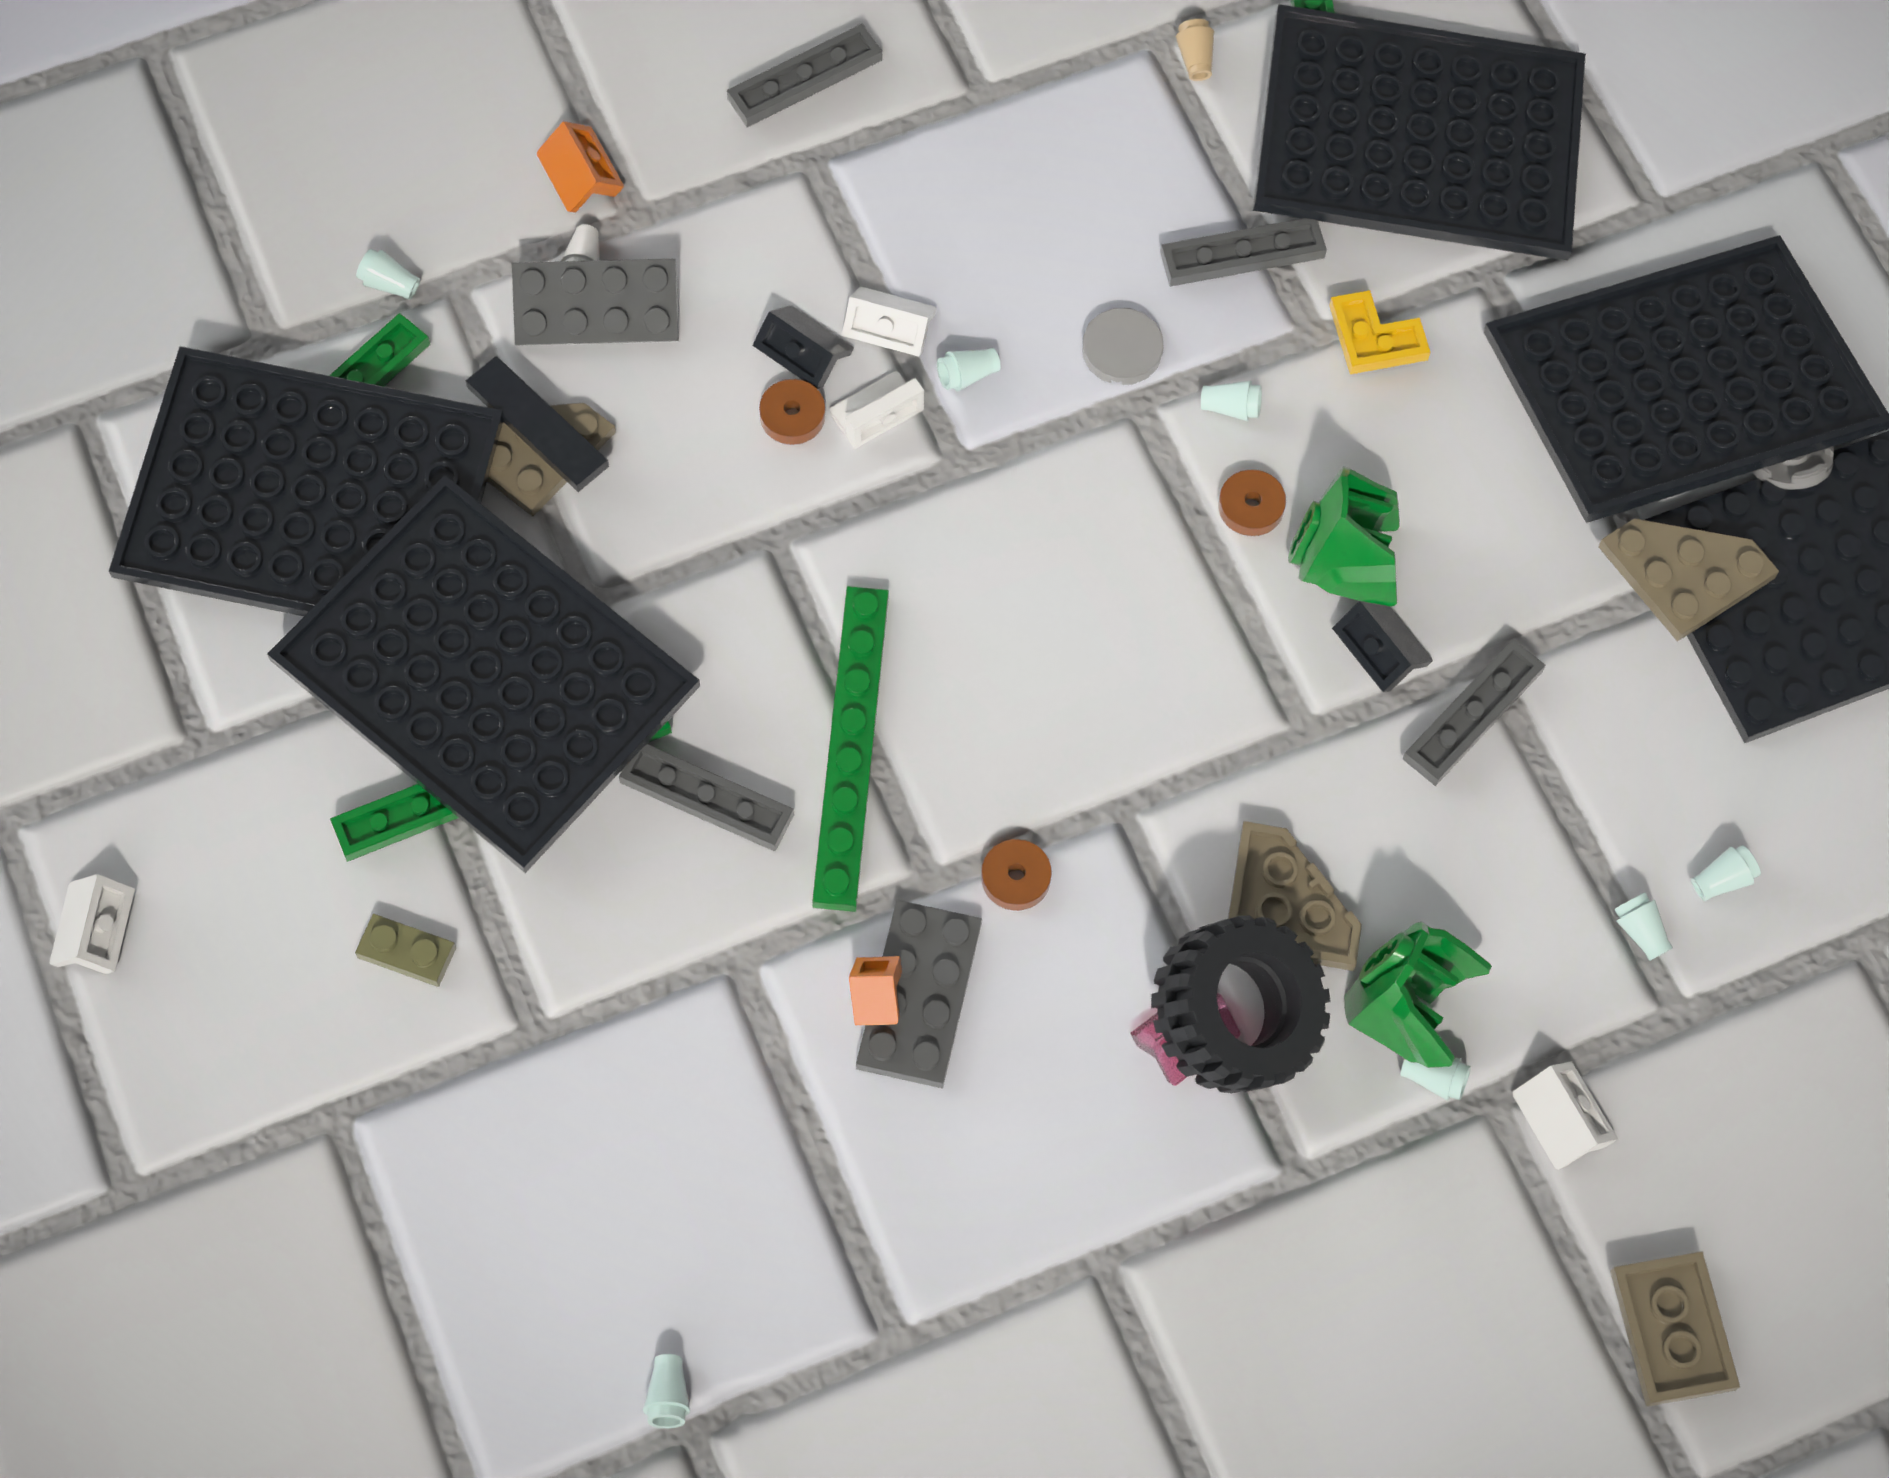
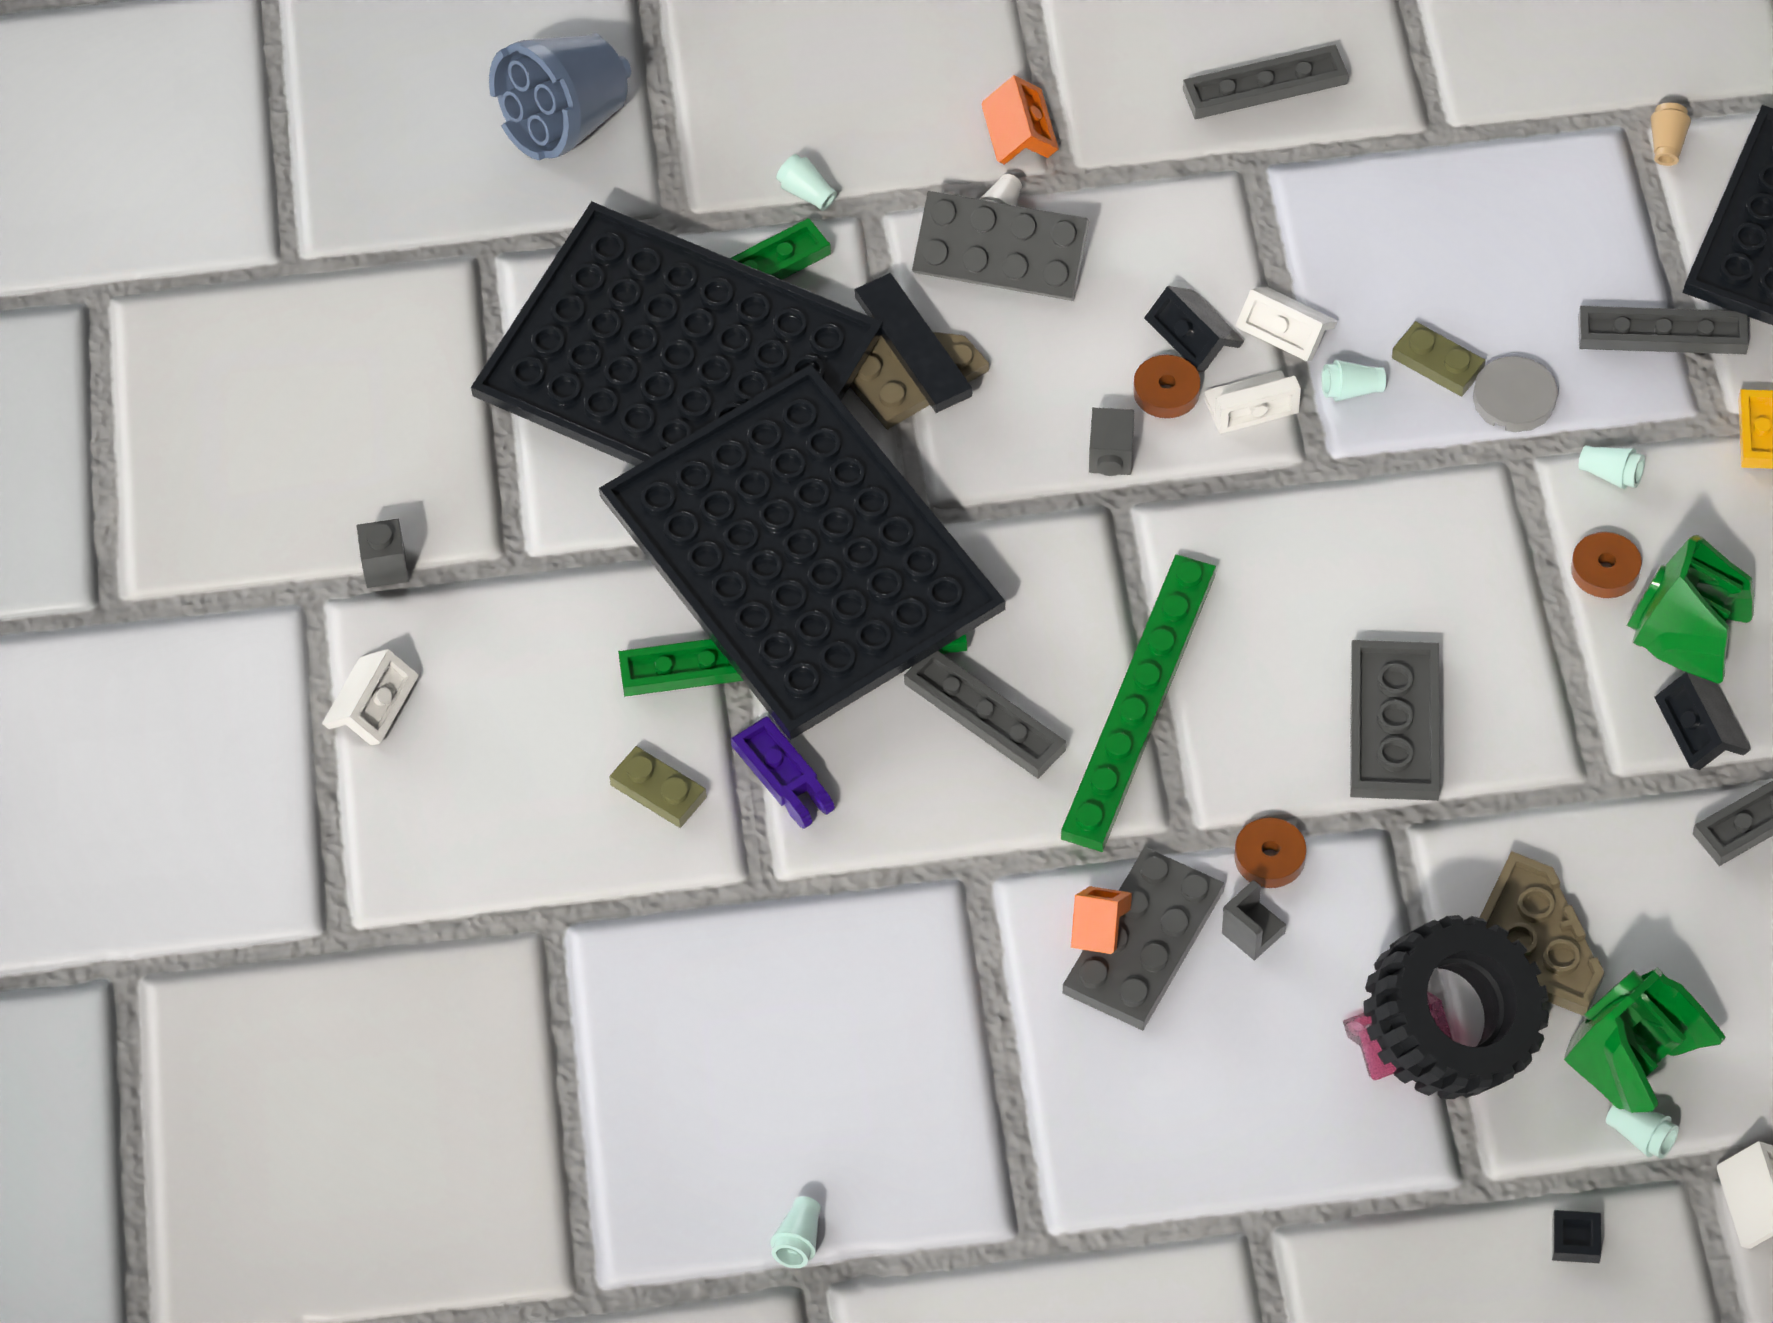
camera: 20 degrees right, 10 degrees down
(64, 768) = (382, 553): none -> dark grey brick
(114, 234) = (557, 91): none -> sand blue cone
(523, 903) = (781, 769): none -> dark purple hinge
(755, 483) = (1111, 441): none -> dark grey brick
(1019, 954) = (1251, 923): none -> dark grey panel
(1041, 326) = (1438, 358): none -> olive plate
(1098, 710) = (1394, 720): none -> dark grey plate
(1405, 1201) = (1576, 1236): none -> black plate

